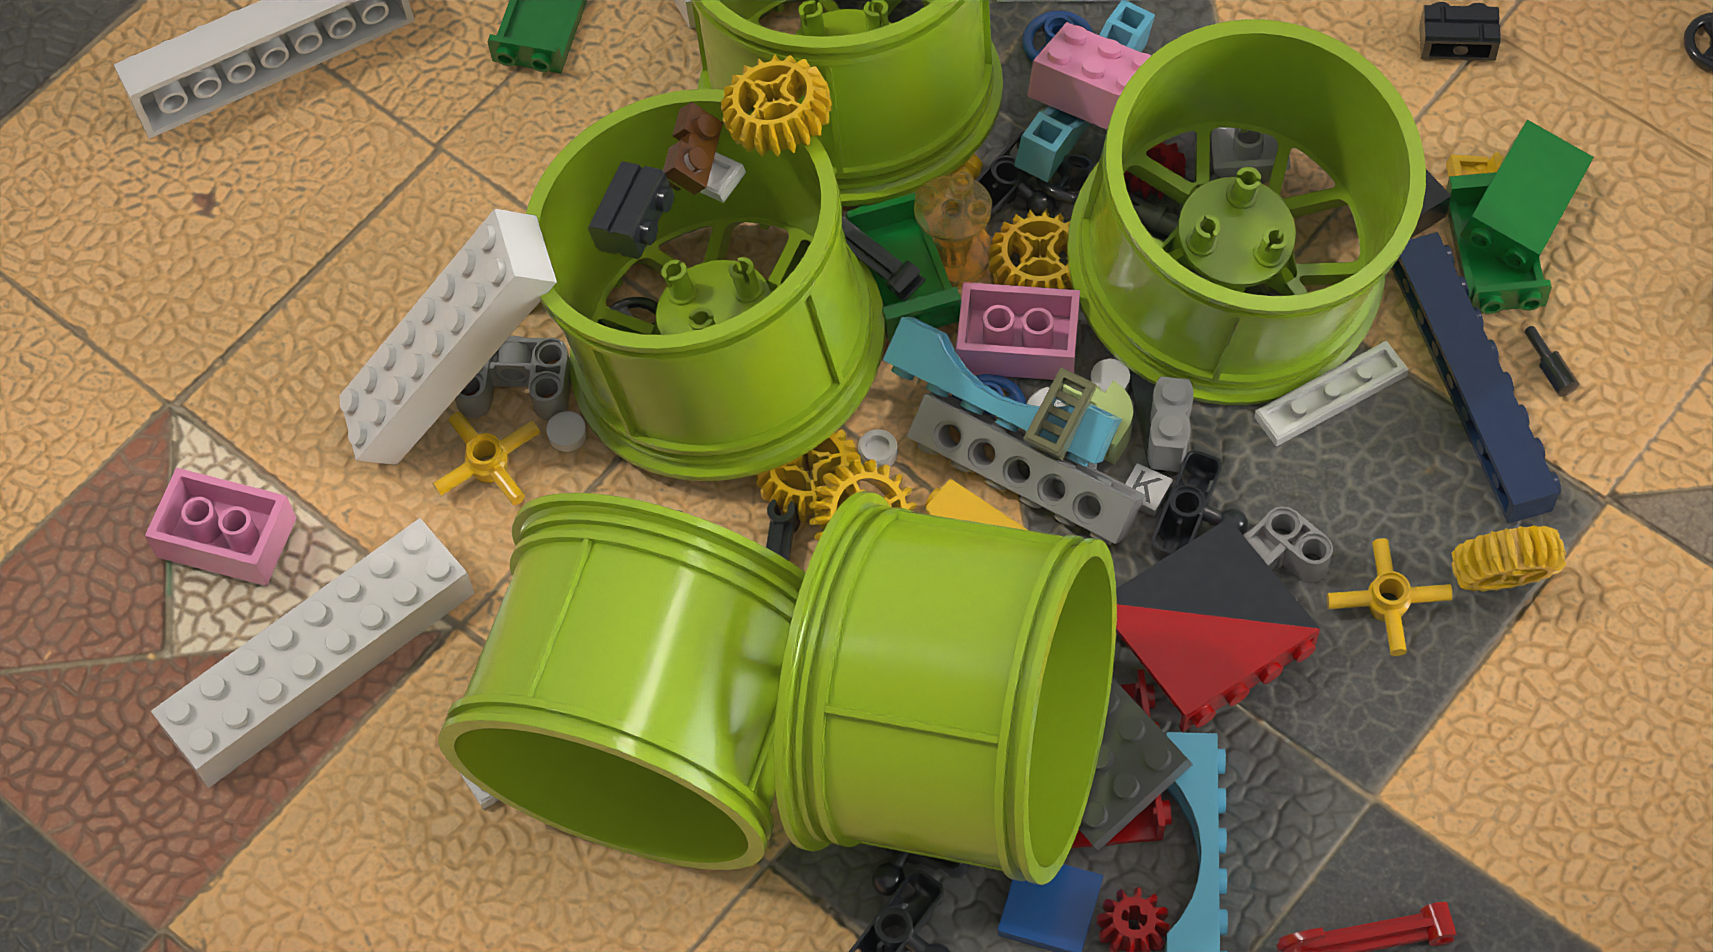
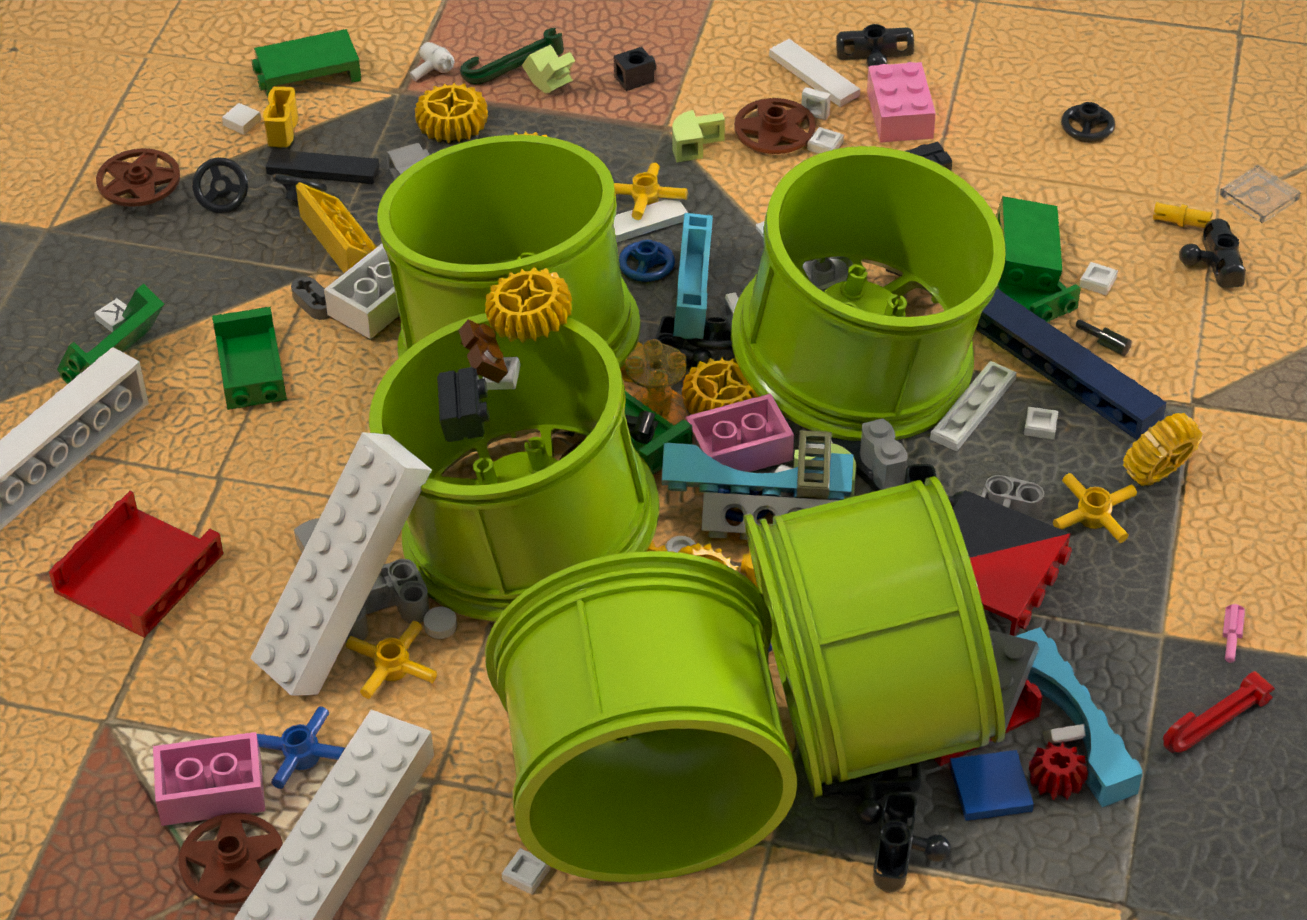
camera: 30 degrees left, 15 degrees down
(199, 626) = (228, 857): none -> copper wheel
(290, 225) = (134, 567): none -> red panel
(334, 526) = (300, 747): none -> blue bar
(1083, 73) = (703, 260): bright pink brick -> none
(1168, 881) = (1064, 734): none -> white tile
(1399, 450) = (1041, 423): none -> white tile
(1459, 831) = (1233, 629): none -> bright pink axle
(1595, 275) = (1098, 278): none -> white tile

